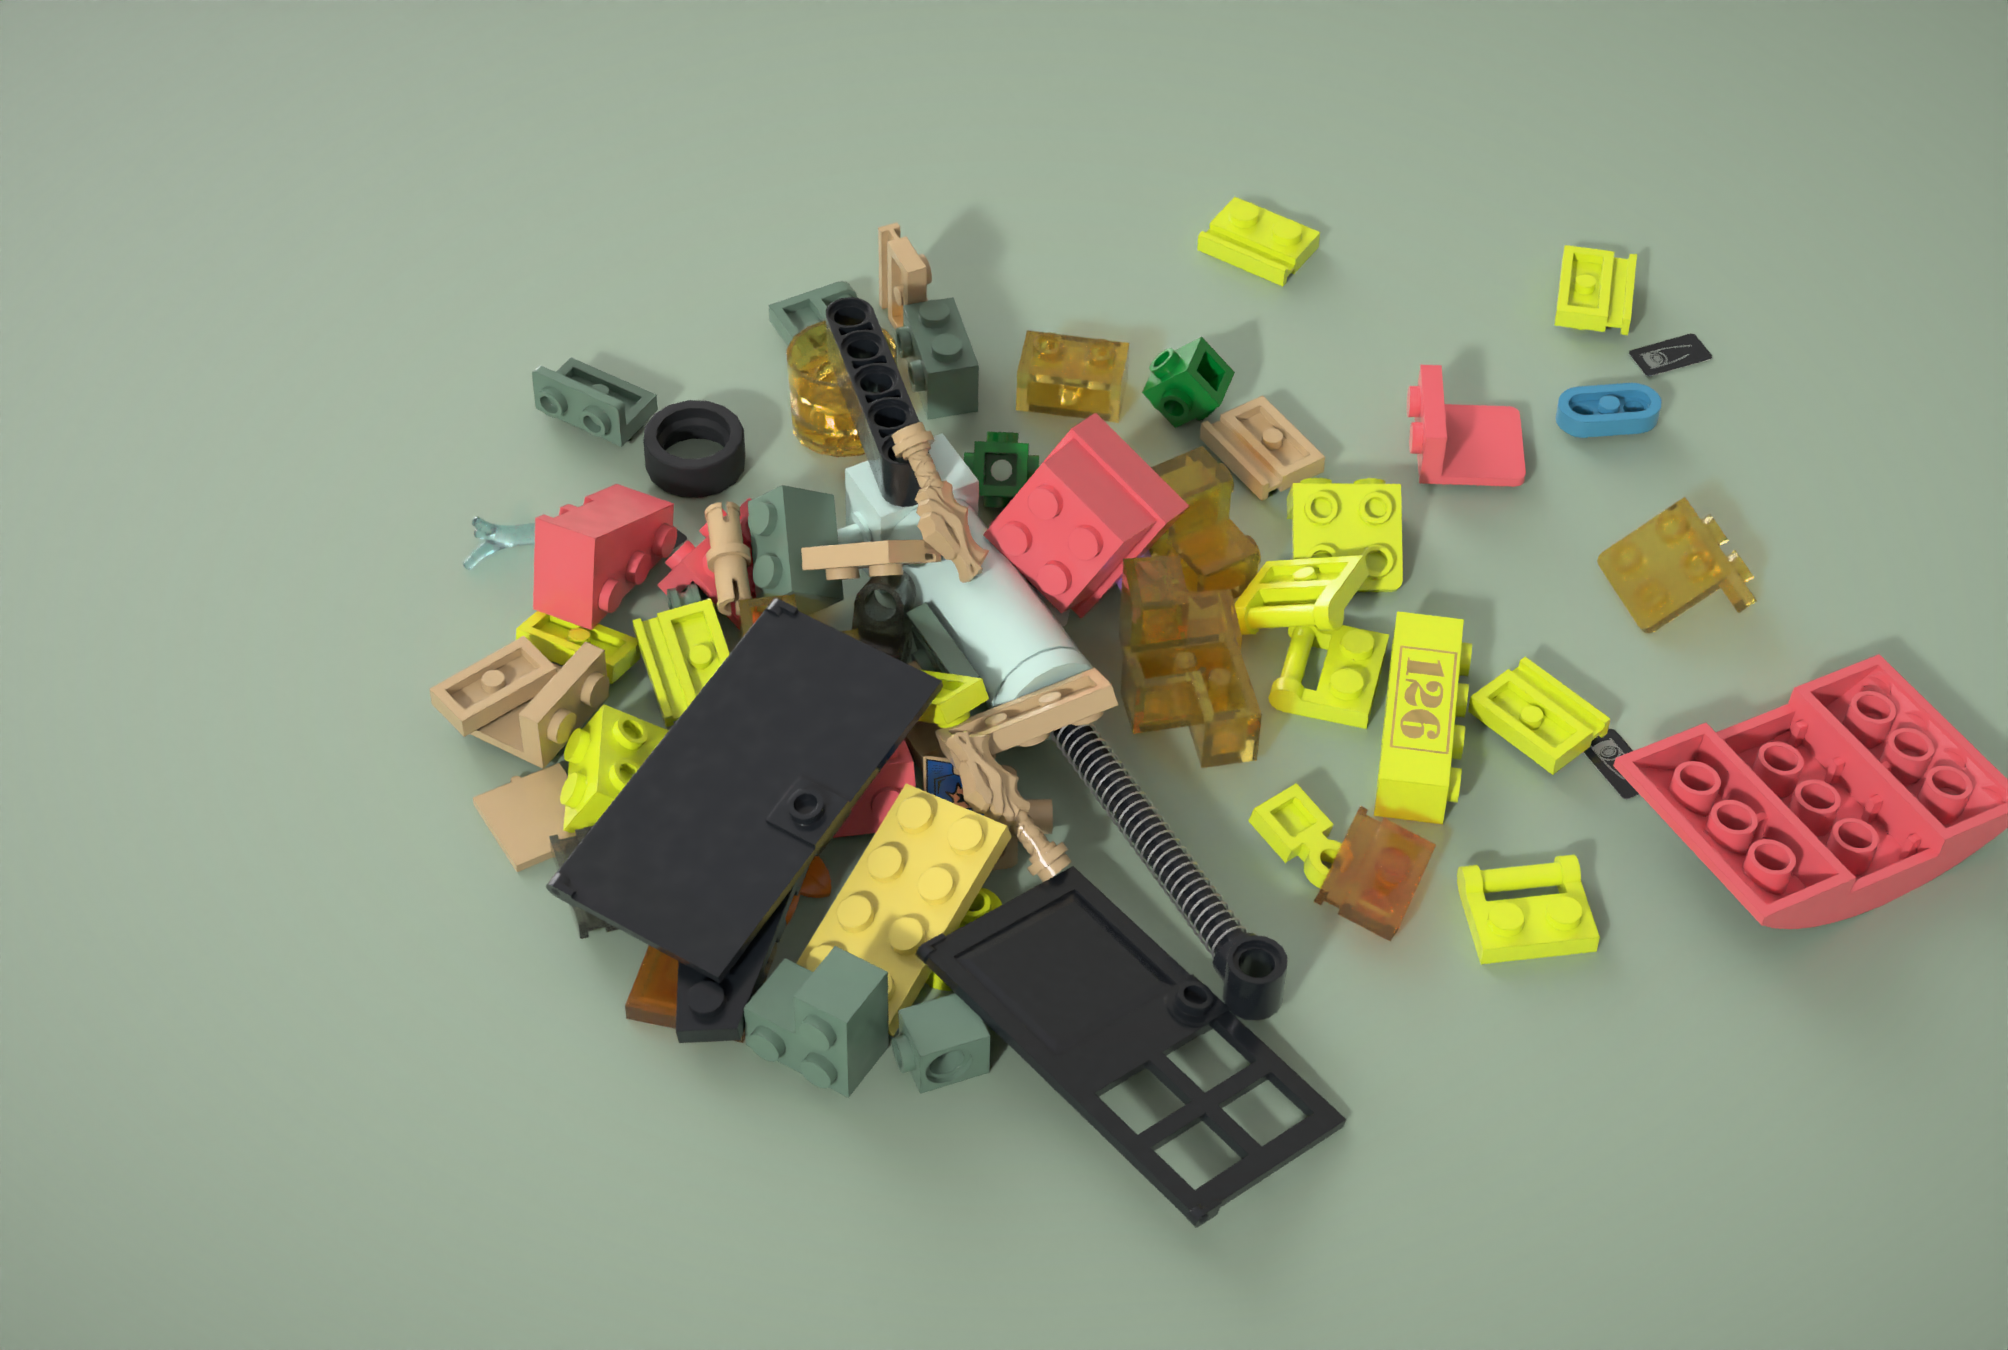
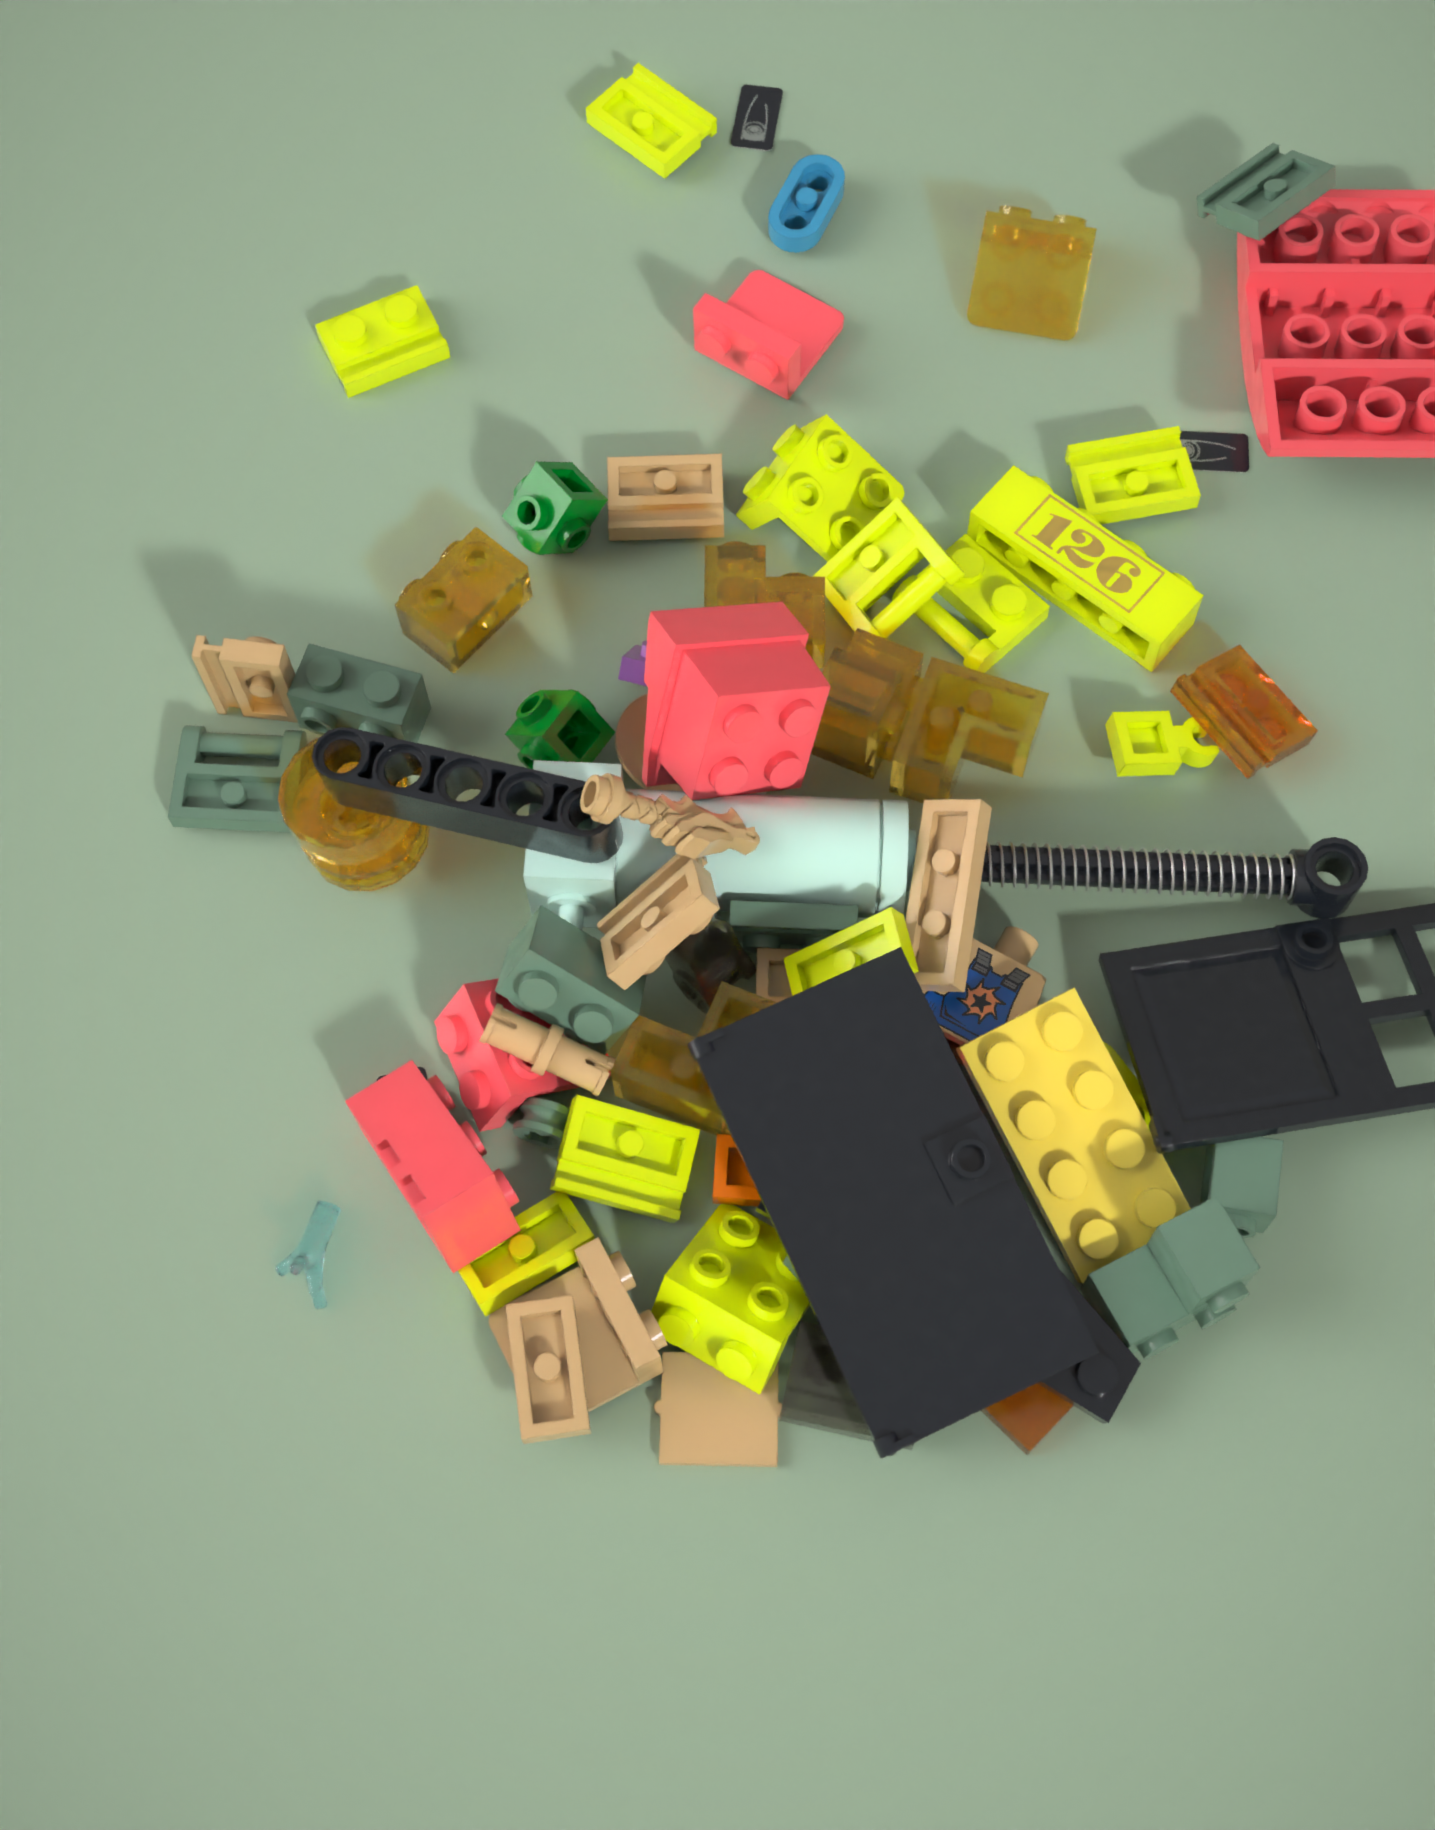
camera: 55 degrees left, 20 degrees up
(593, 400) = (181, 1058): sand green bracket -> none
(694, 421) = (296, 958): black tyre -> none
(995, 794) = (1023, 977): tan piece -> none
(1528, 925) = (1353, 627): neon yellow plate -> none
(1879, 658) = (1266, 191): none -> sand green plate

